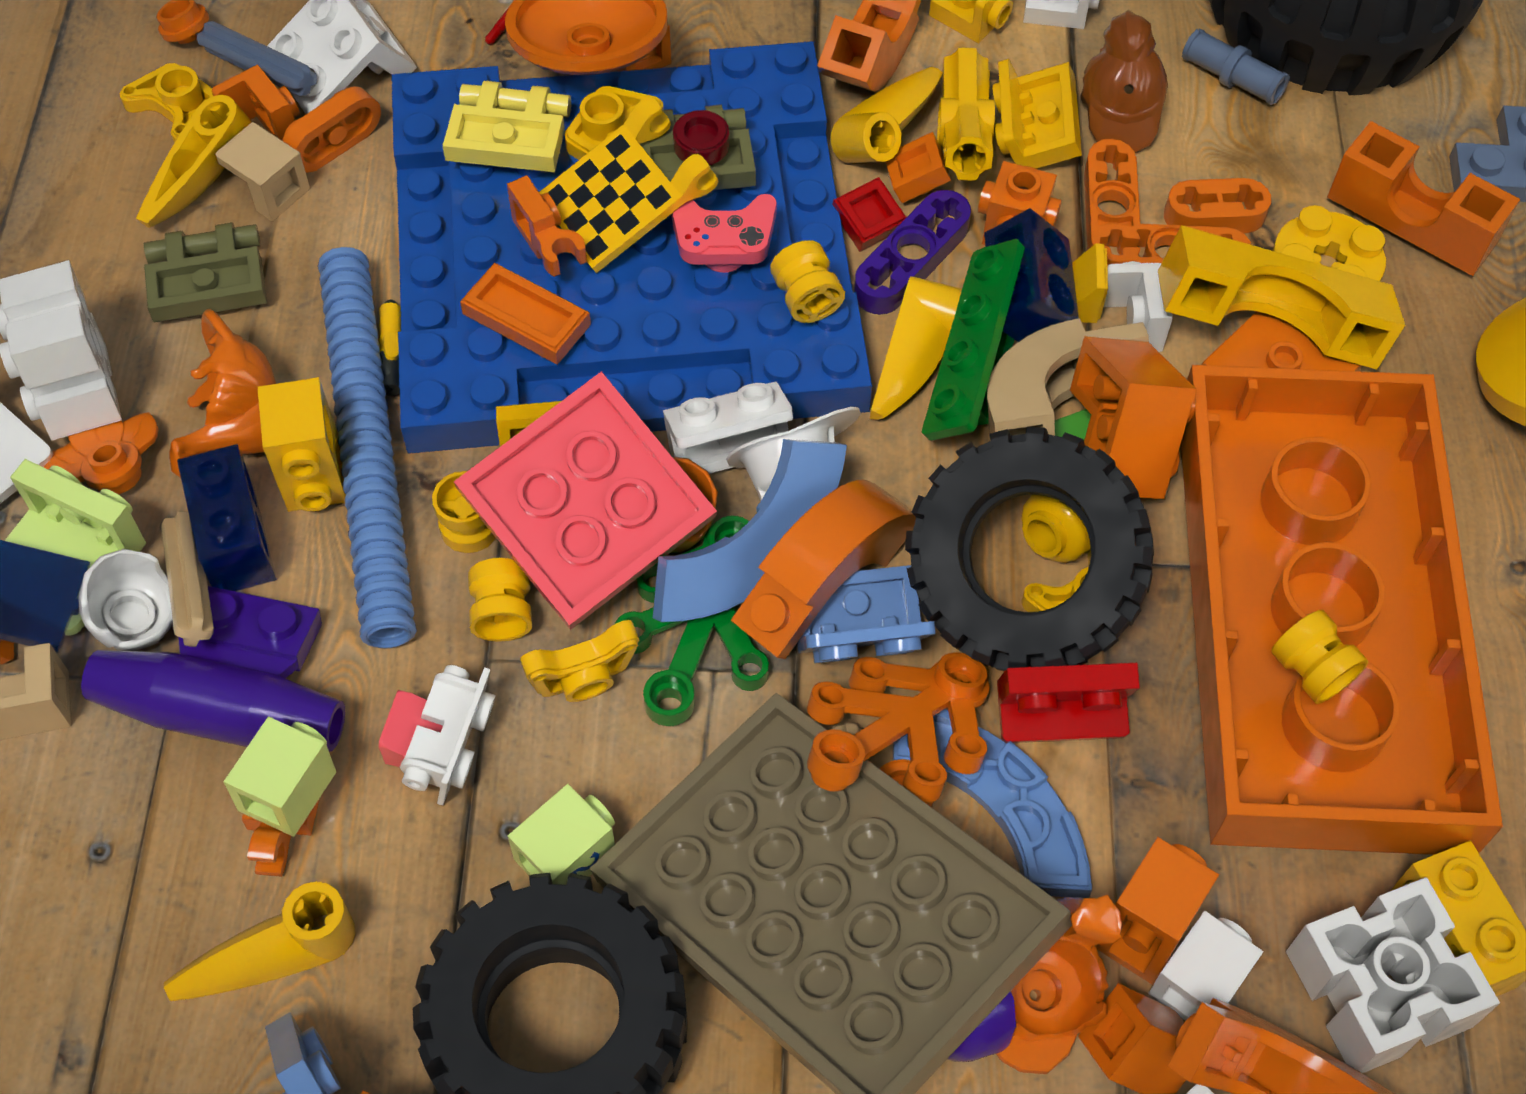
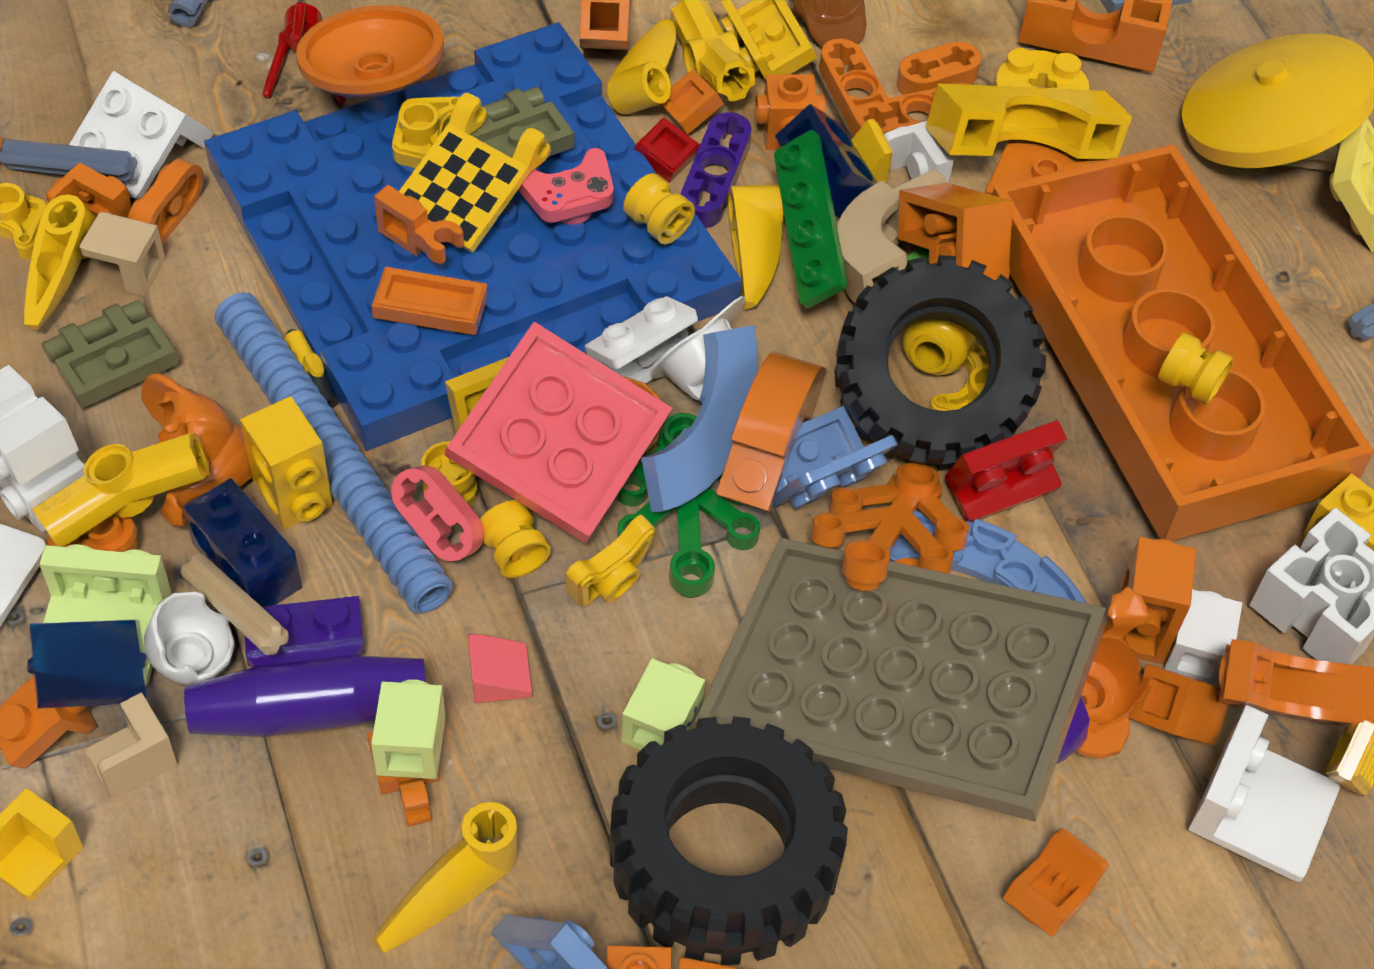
camera: 25 degrees left, 5 degrees down
(129, 416) = (121, 485): none -> yellow piece
(428, 547) = (437, 513): none -> coral beam
(442, 756) = (529, 675): white hinge -> none
(507, 127) = (340, 154): light yellow plate -> none
(701, 134) = (516, 114): dark red tile -> none

